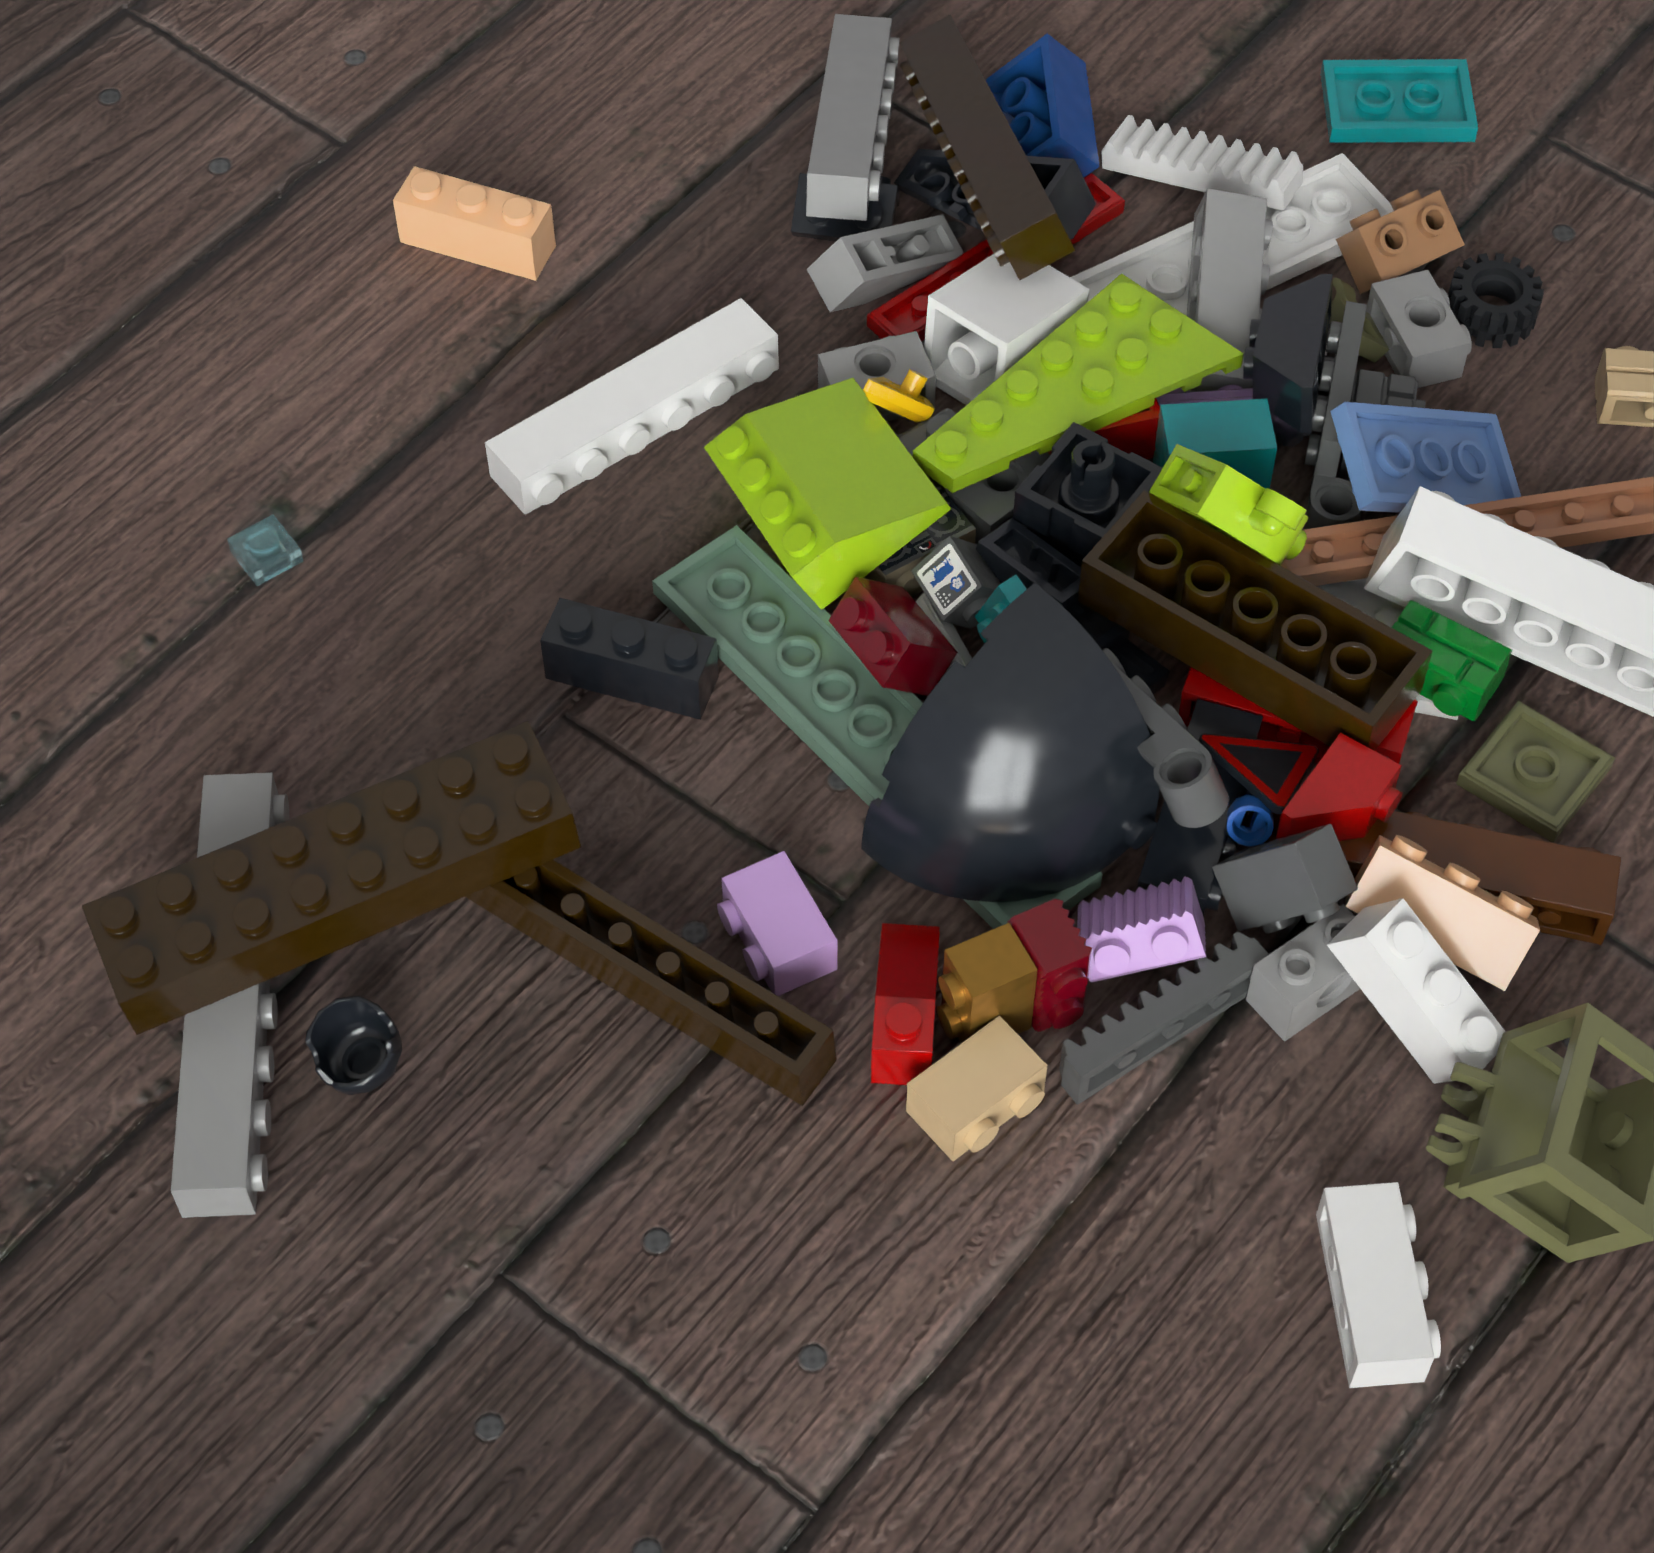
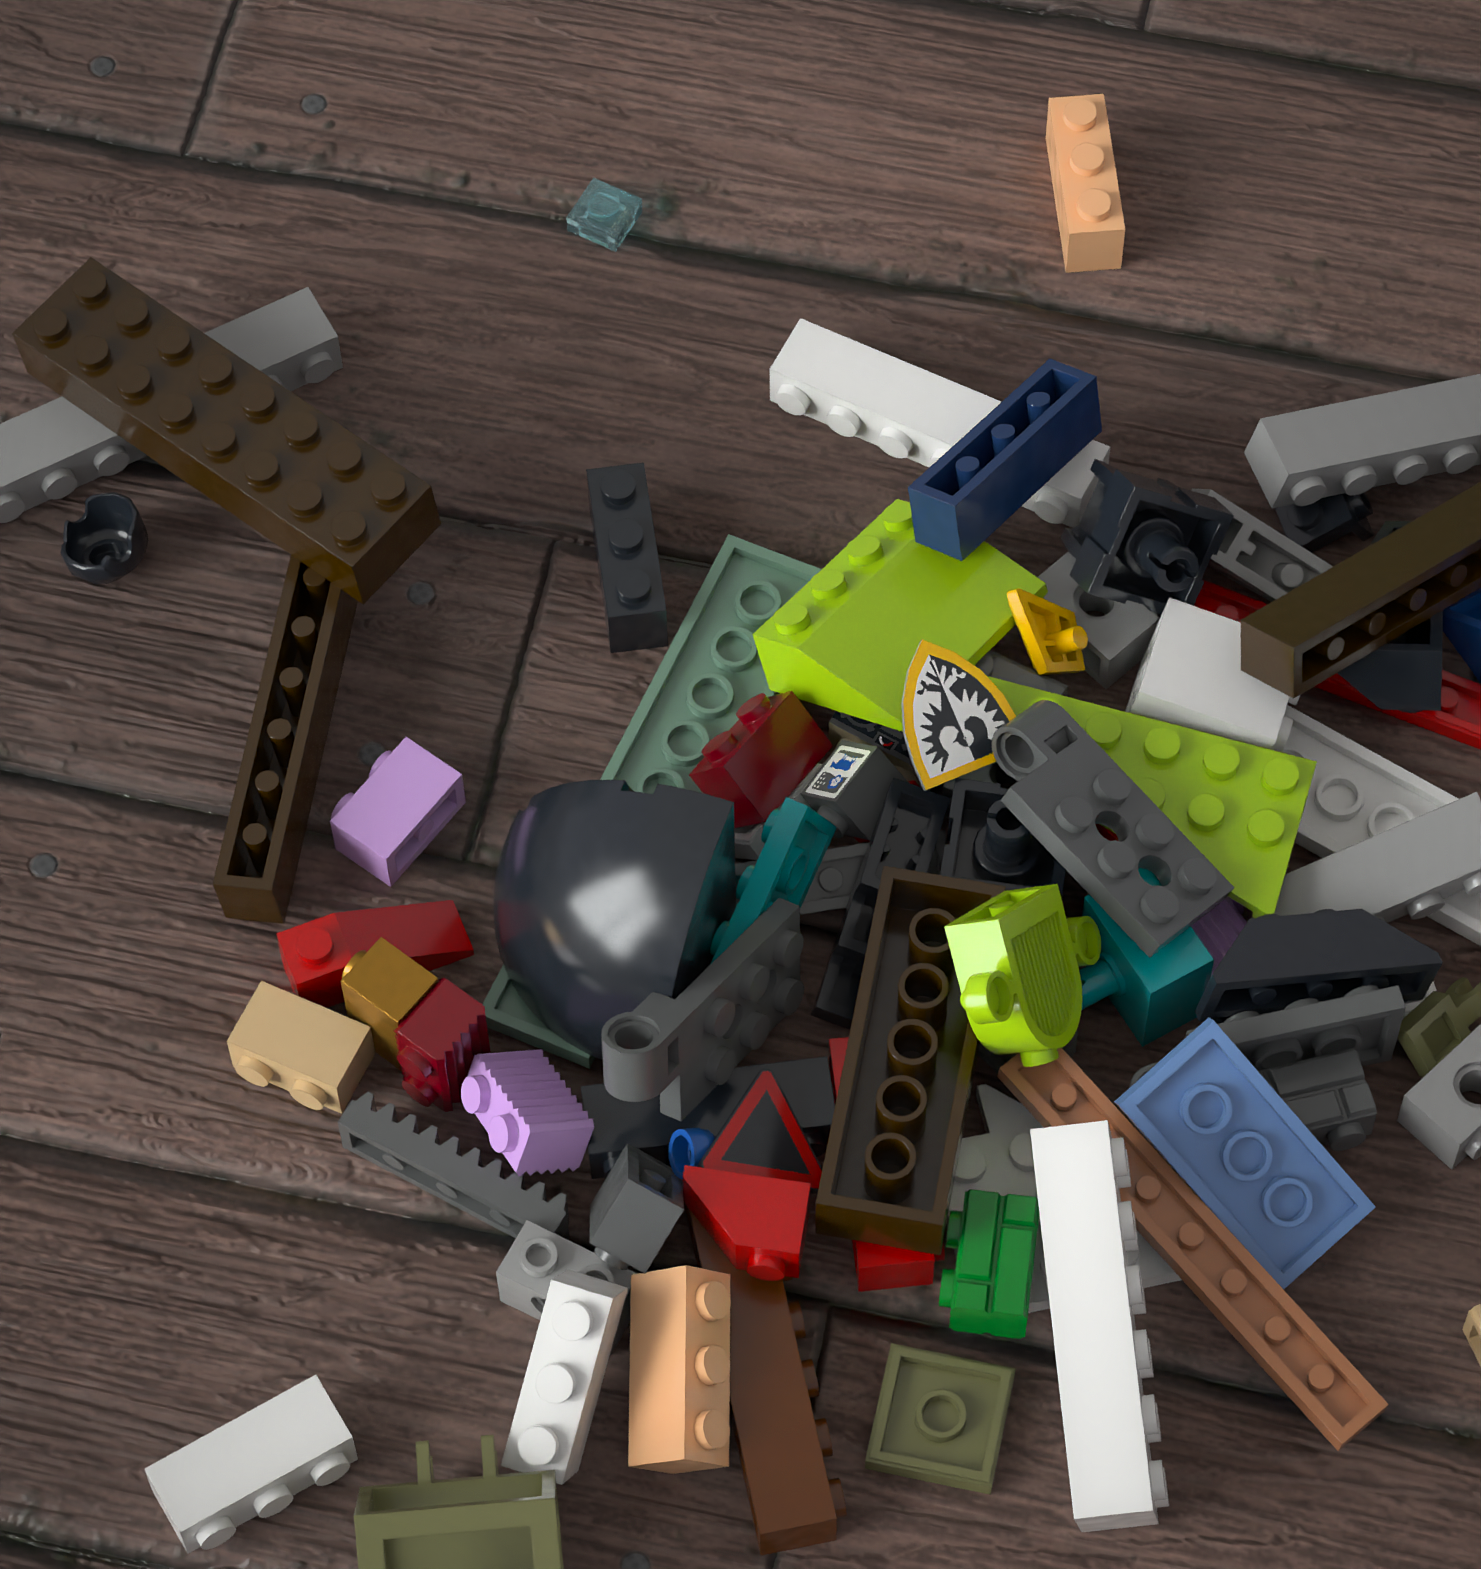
camera: 65 degrees right, 5 degrees up
(741, 342) = (1005, 459): none -> dark blue brick
(858, 294) = (1144, 539): none -> black piece
(970, 461) = (949, 715): none -> shield
(1121, 406) = (1074, 784): none -> dark grey hinge

